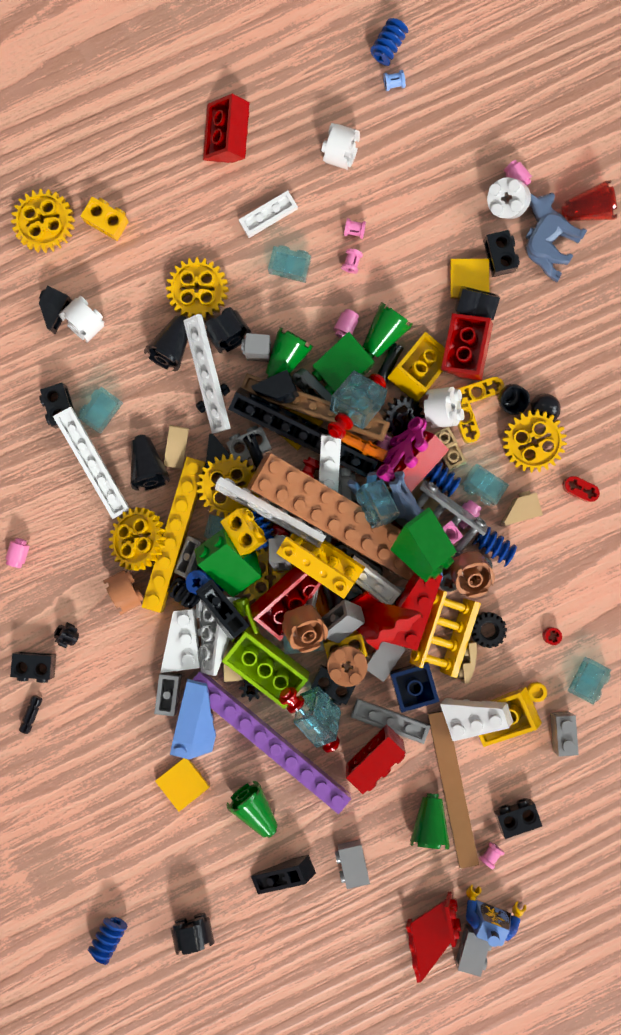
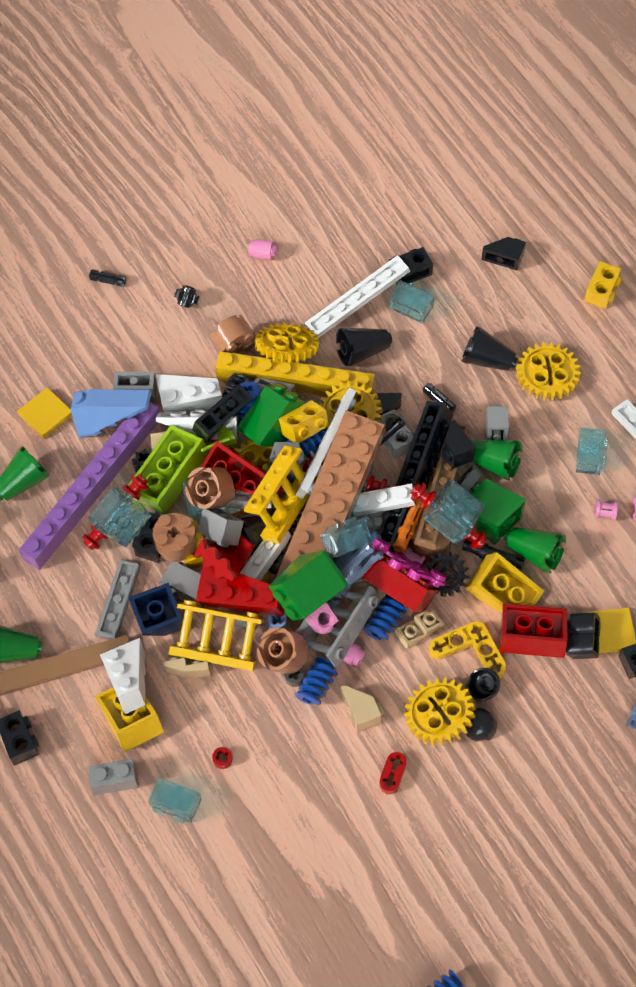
camera: 90 degrees right, 25 degrees down
(33, 663) = (154, 269): black brick -> none
(39, 203) = (593, 230): yellow gear -> none
(82, 319) = (497, 274): white brick -> none
(176, 447) = (385, 368): tan slope -> none
(206, 373) = (465, 382): white plate -> none
(227, 330) = (510, 393): black brick -> none
(346, 323) = (537, 511): bright pink brick -> none
(375, 759) = (77, 578): red brick -> none
(443, 407) = (461, 608): white brick -> none
(484, 485) = (383, 666): clear light blue brick -> none
(499, 634) = (223, 674): black tyre -> none
(537, 691) = (158, 747): yellow tile -> none

